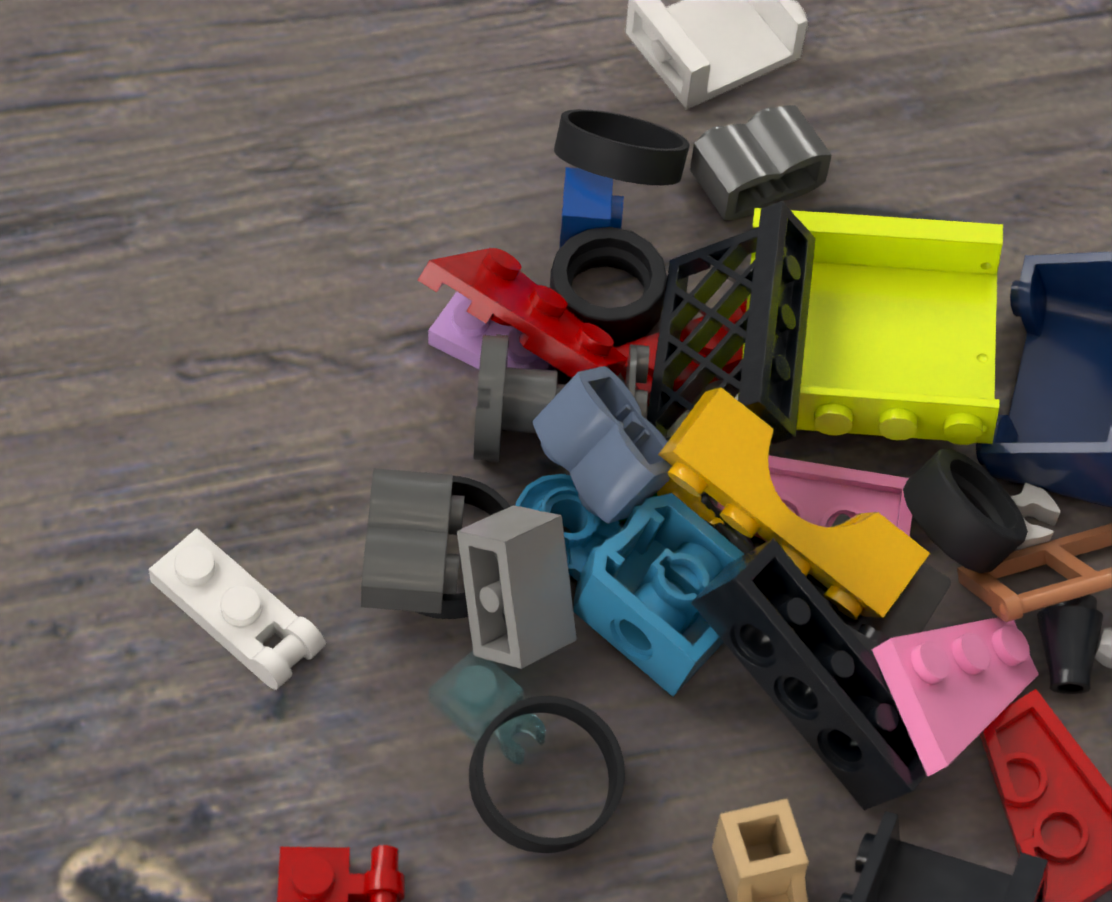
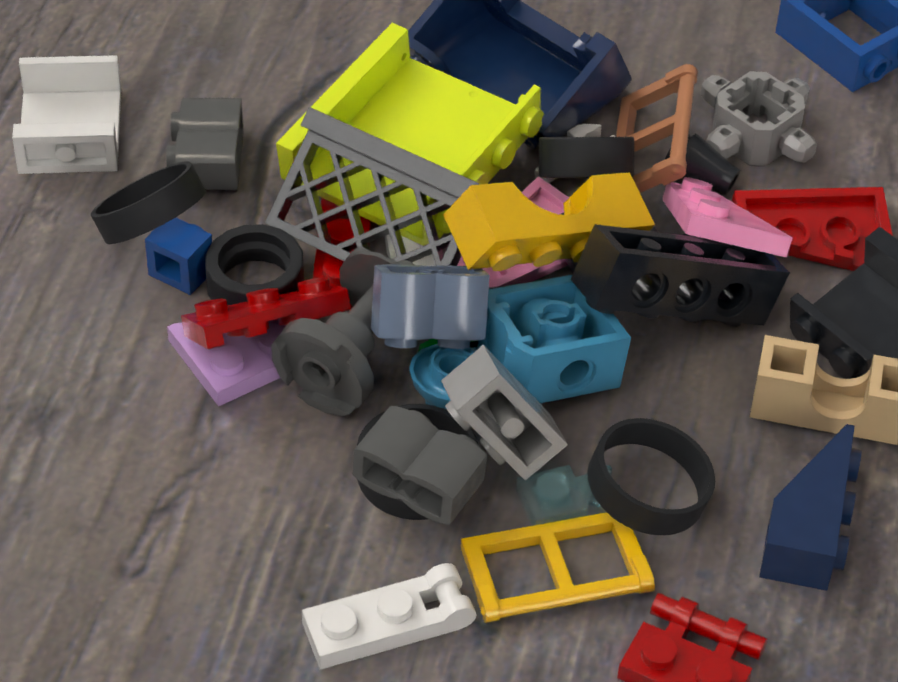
camera: 60 degrees left, 10 degrees down
(424, 709) = (546, 535): none -> yellow window

